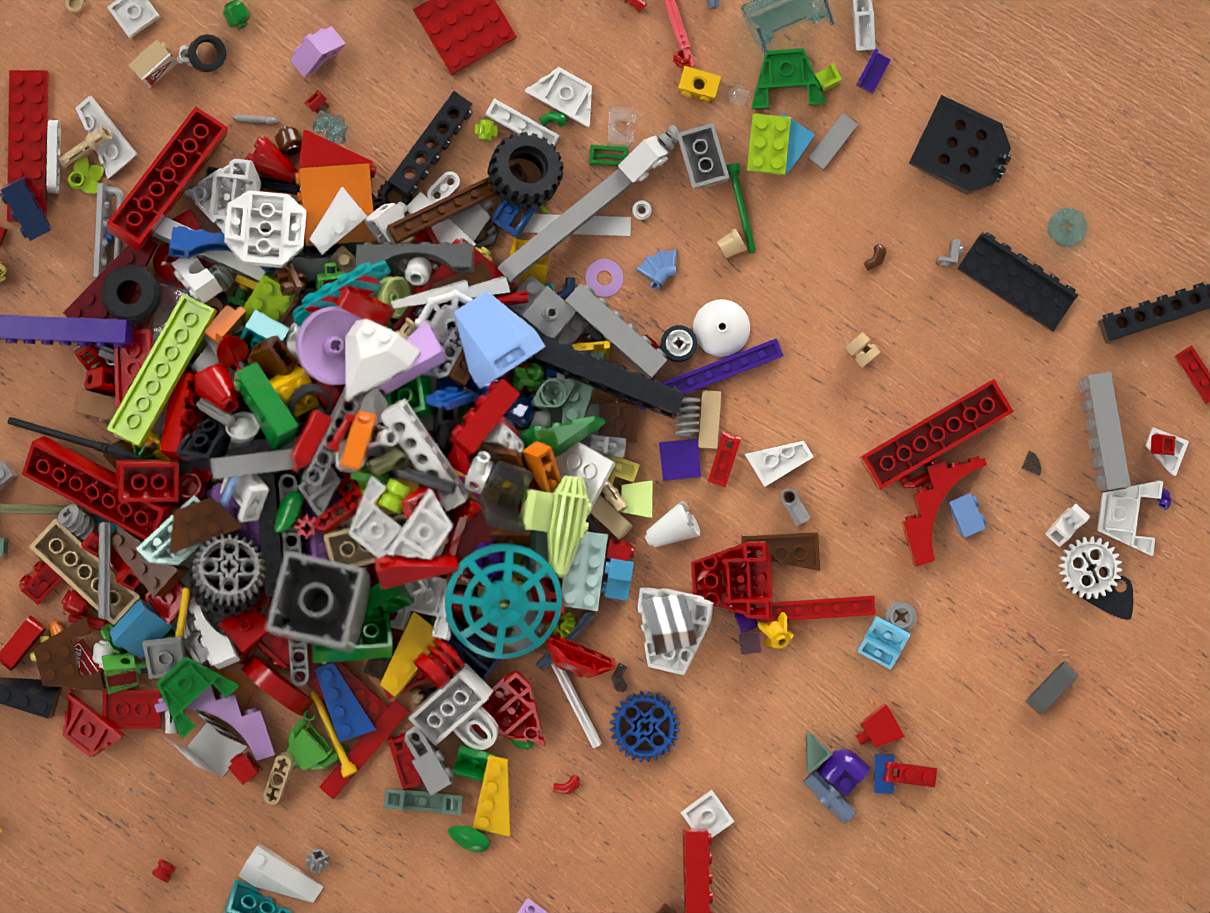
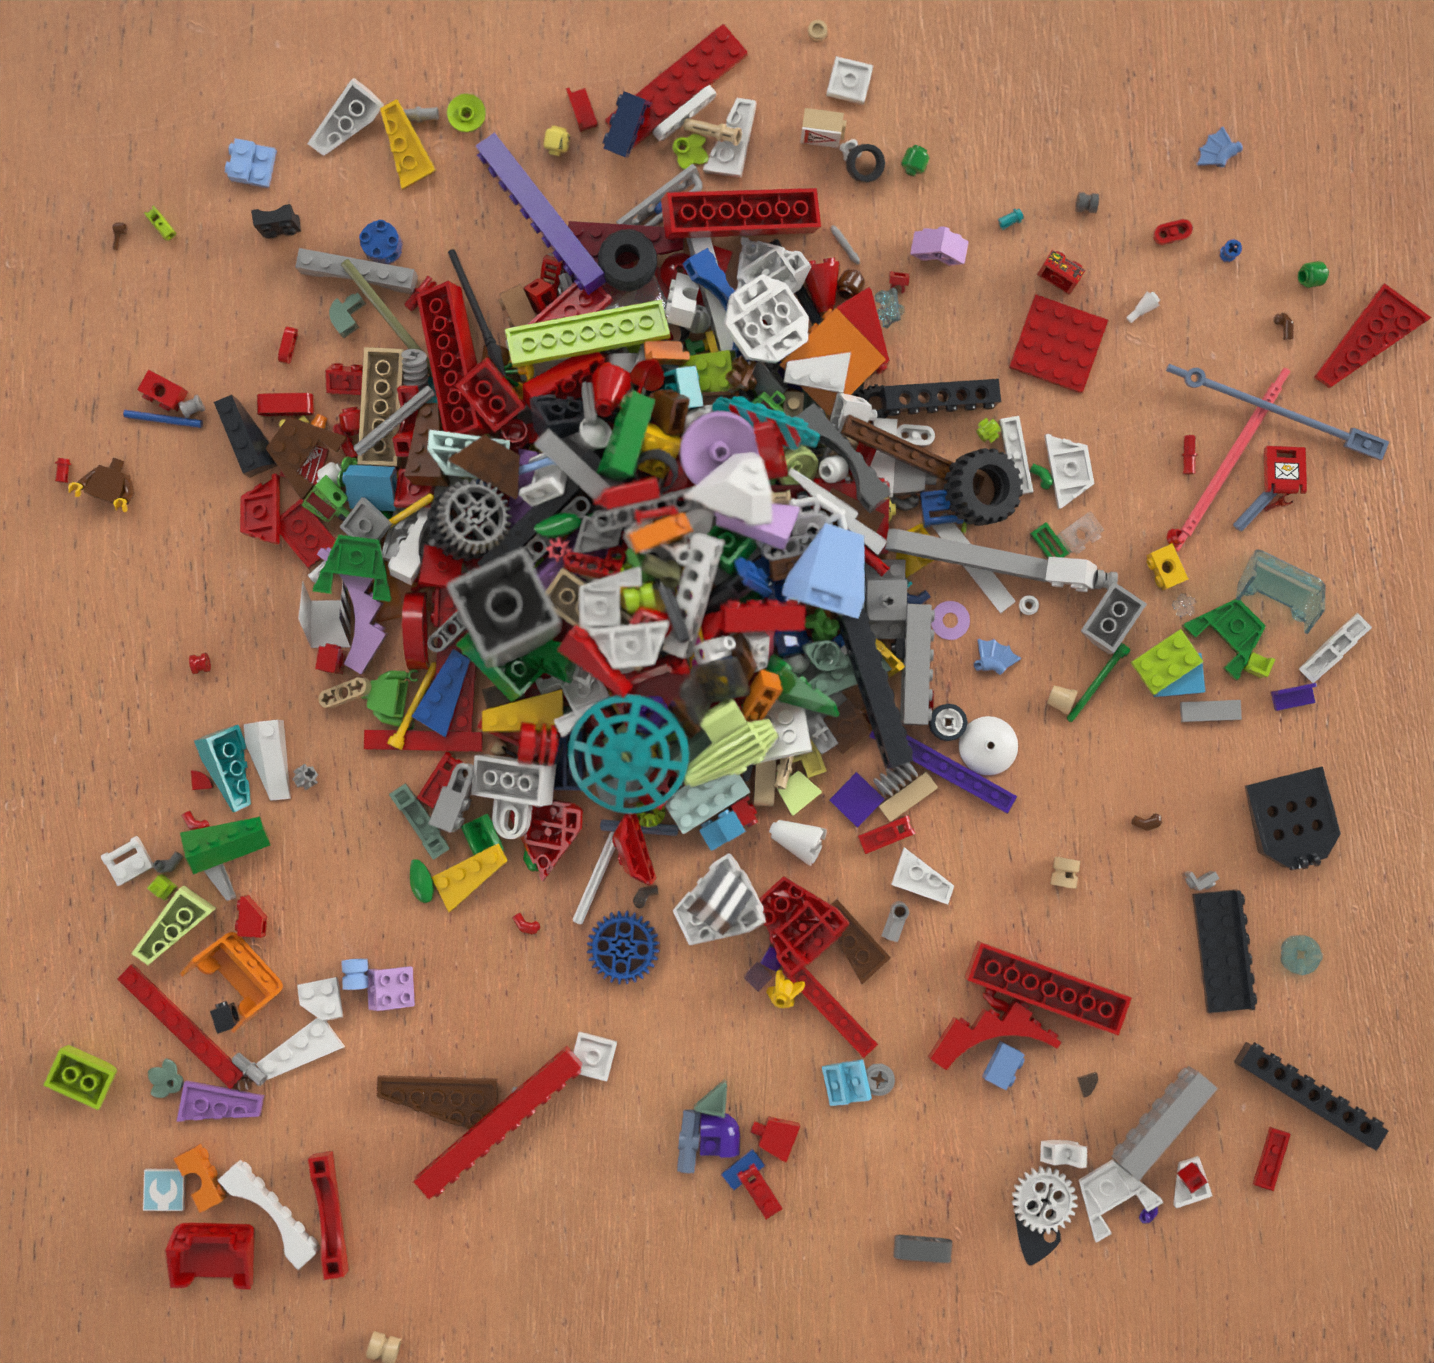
camera: 50 degrees right, 0 degrees up
(24, 482) = (412, 302): none -> red axle

